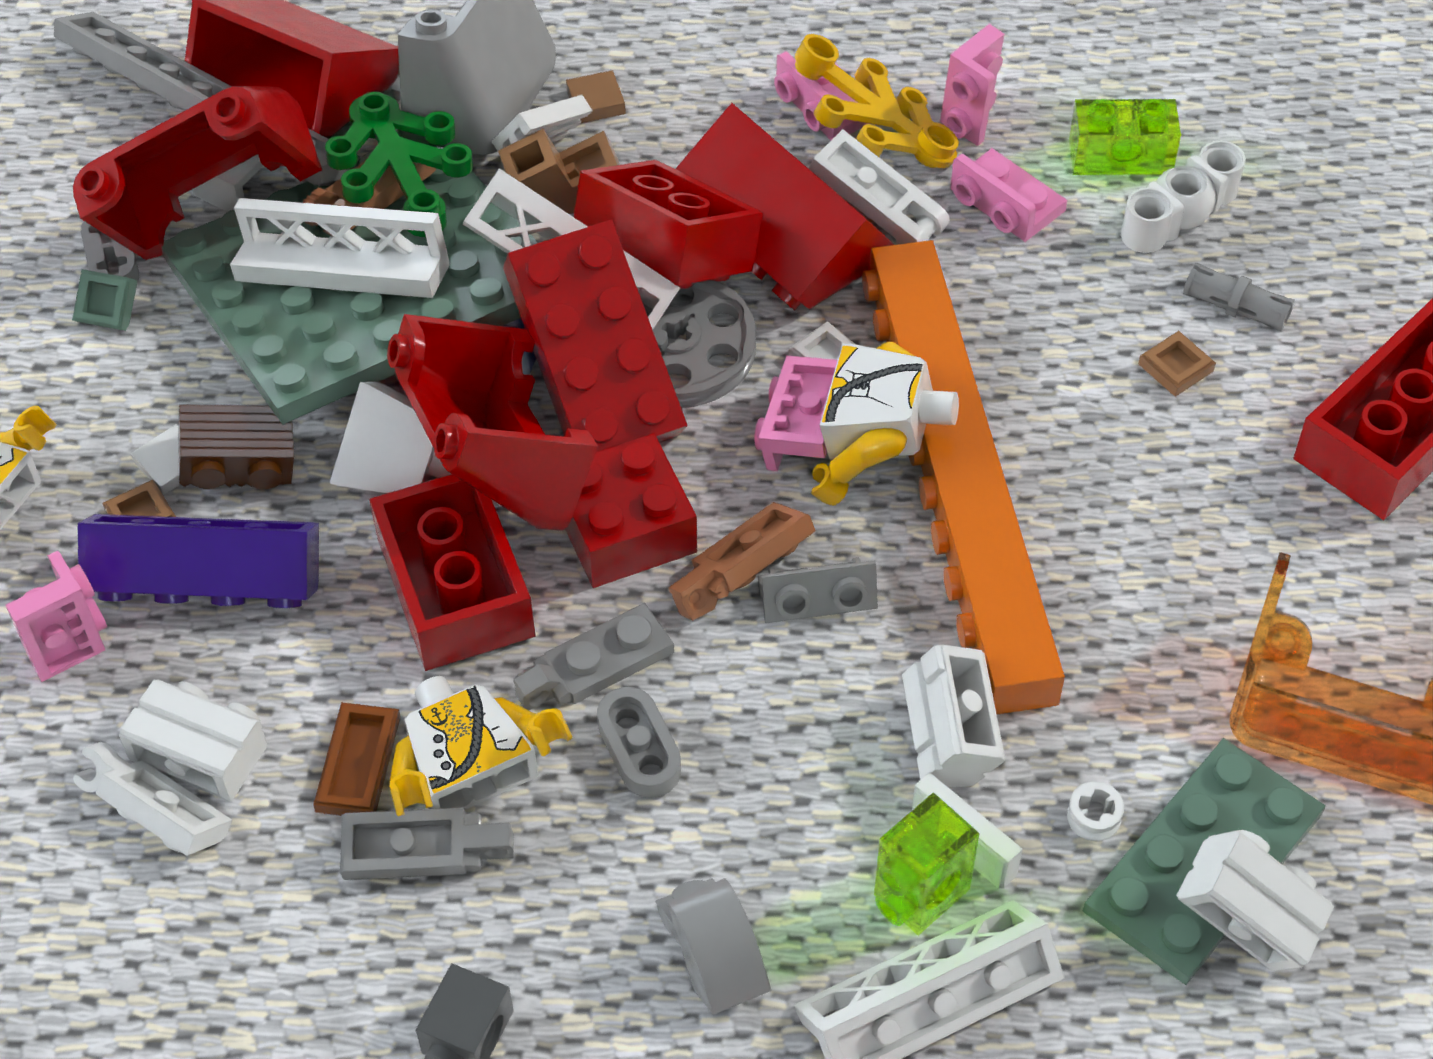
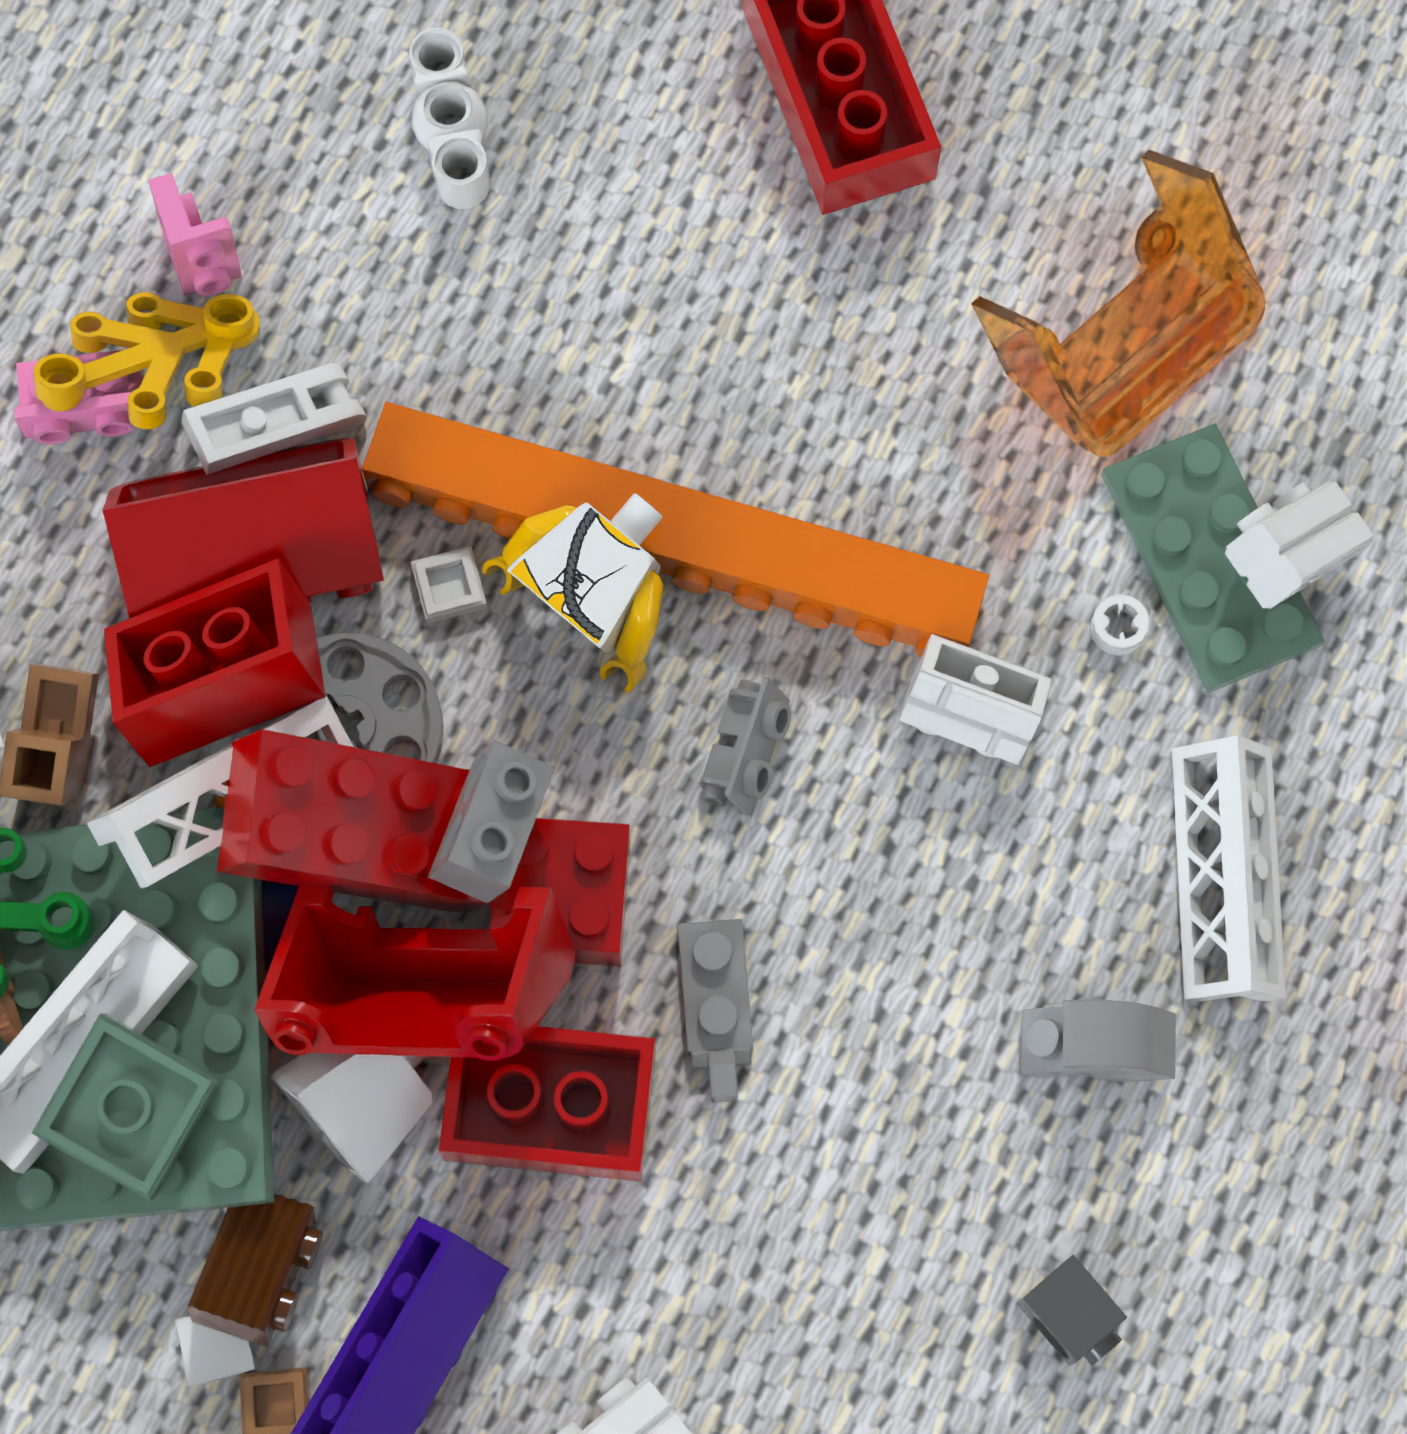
camera: 65 degrees left, 20 degrees up
(304, 296) = (126, 1106): none -> sand green tile
(357, 759) = (716, 1295): dark orange tile -> none
(419, 843) = (852, 1274): light grey hinge -> none
(468, 747) = (772, 1181): torso -> none
(636, 403) = (491, 822): none -> light grey brick
(640, 745) = (839, 1005): light grey plate -> none
(739, 557) = (673, 800): nougat hinge -> none
(795, 411) = (533, 646): bright pink bracket -> none
(924, 864) = (1130, 811): clear neon green brick -> none
(996, 853) = (1092, 753): white tile -> none
(1005, 194) = (336, 287): bright pink bracket -> none
(1124, 136) = (337, 127): clear neon green brick -> none
(1177, 363) = (650, 251): medium nougat tile -> none
(1238, 296) = (602, 143): light grey pin -> none

